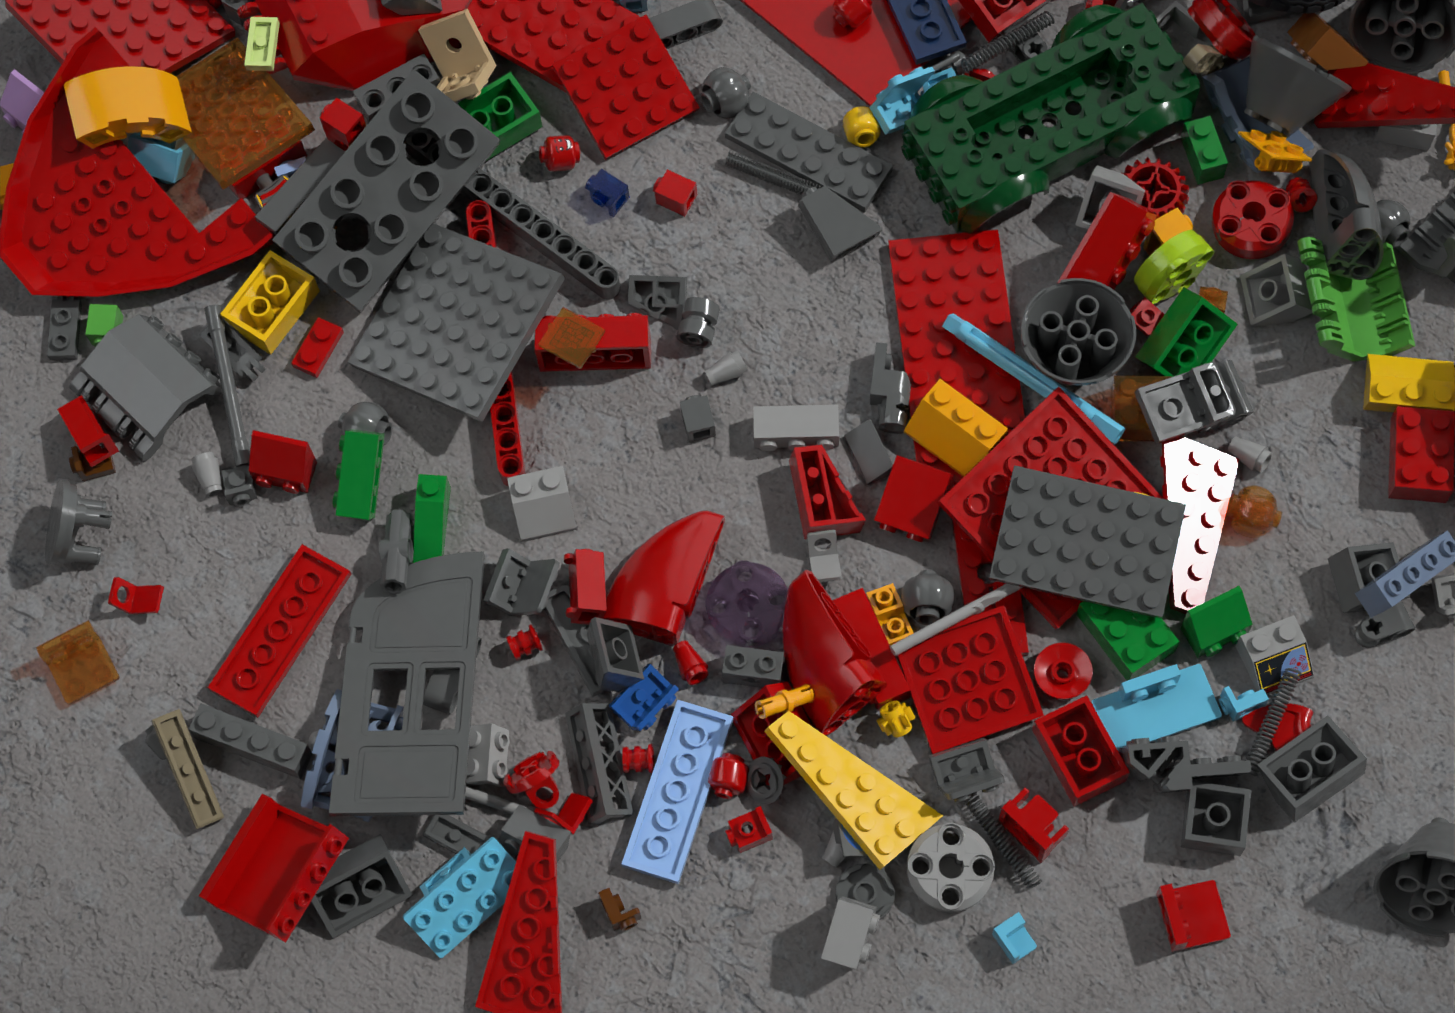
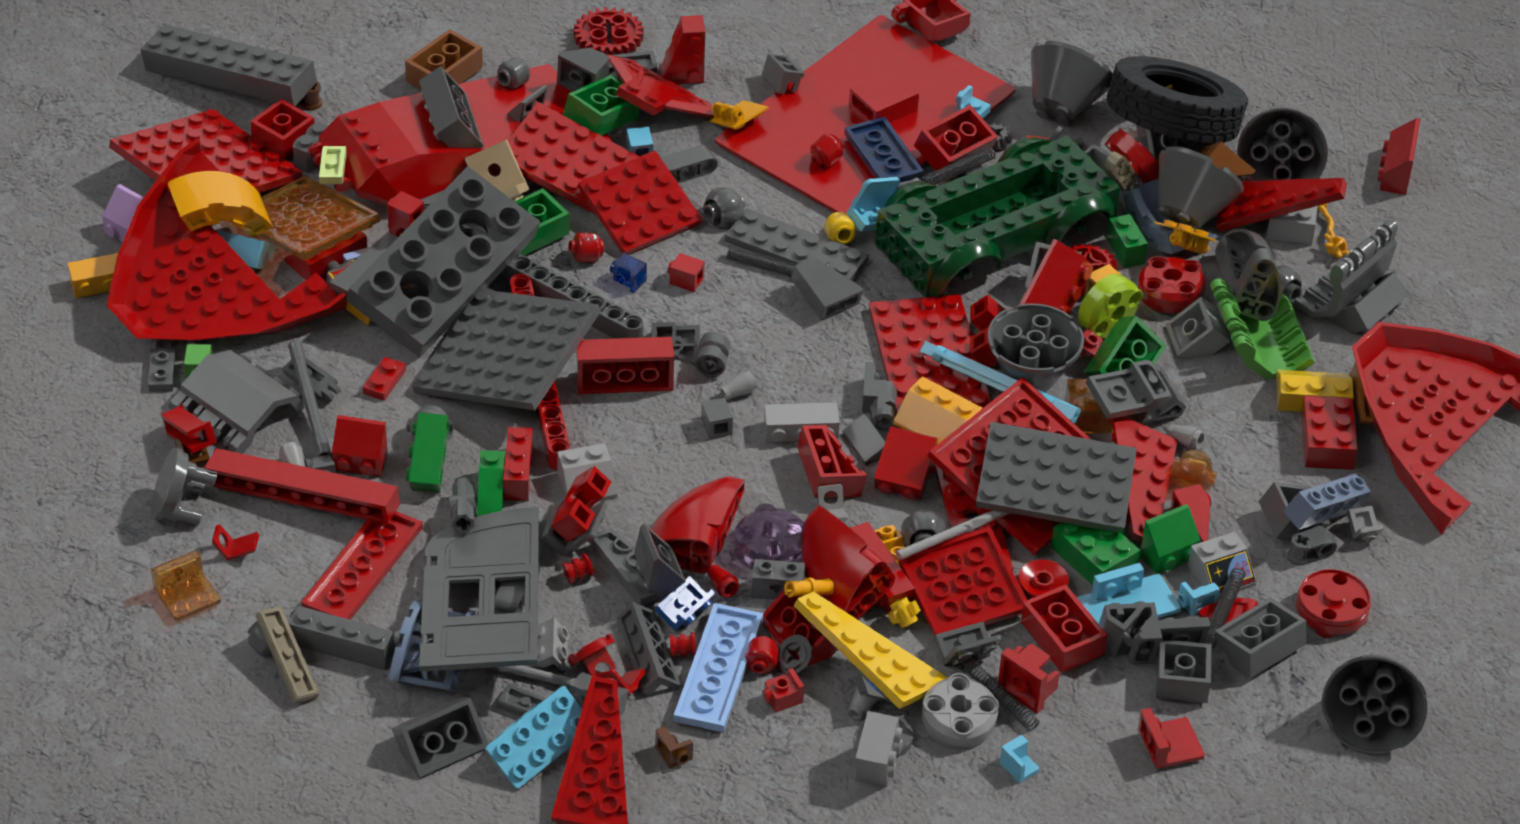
camera: 10 degrees left, 25 degrees down
(214, 518) = (304, 486): none -> red brick
(270, 301) = (345, 342): yellow slope -> none
(273, 868) = (367, 718): red panel -> none
(461, 488) = (518, 463): none -> red arch
(537, 539) = (575, 513): none -> red arch
(571, 337) = (609, 350): clear orange piece -> none
(586, 585) = (627, 519): red brick -> none
(1029, 274) = (981, 316): none -> red arch
(1249, 569) = (1199, 505): none -> red slope
(1306, 200) = (1216, 271): red bush -> none
(1402, 715) = (1333, 602): none -> red piece

